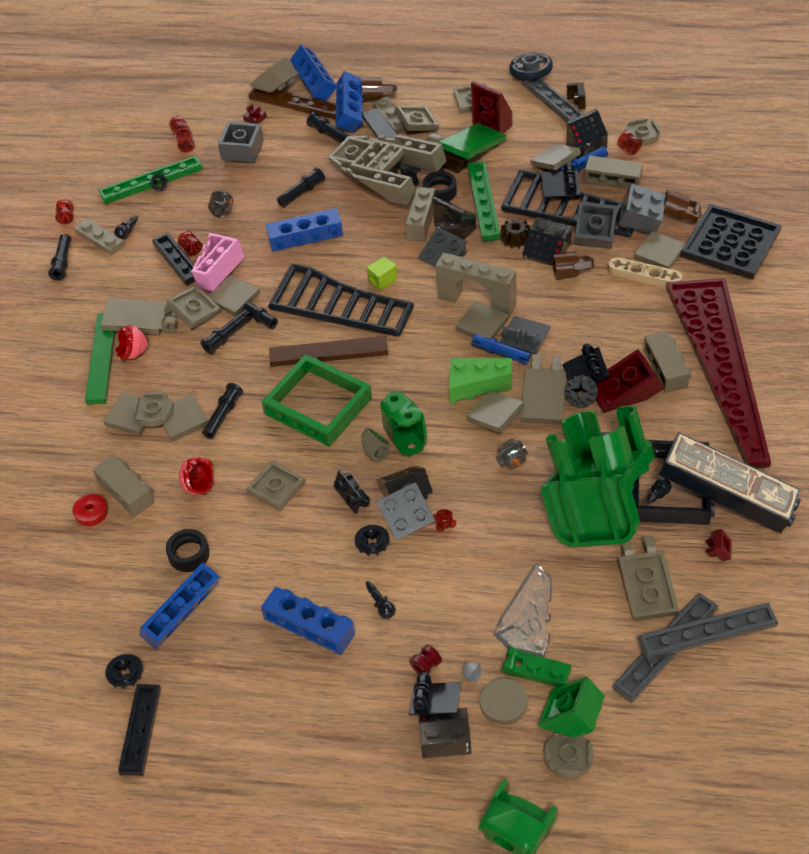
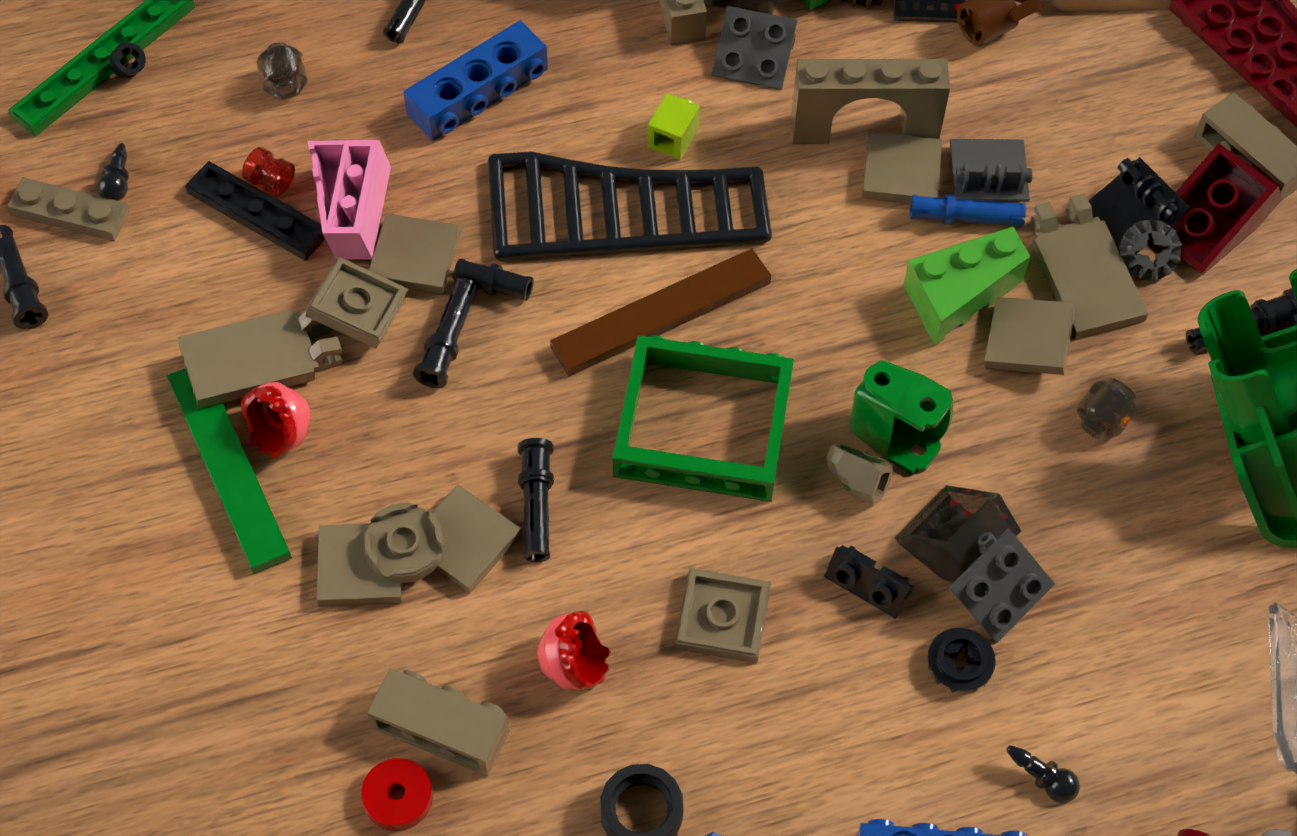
camera: 30 degrees left, 10 degrees up
(441, 515) = (1070, 568): clear red plate -> none

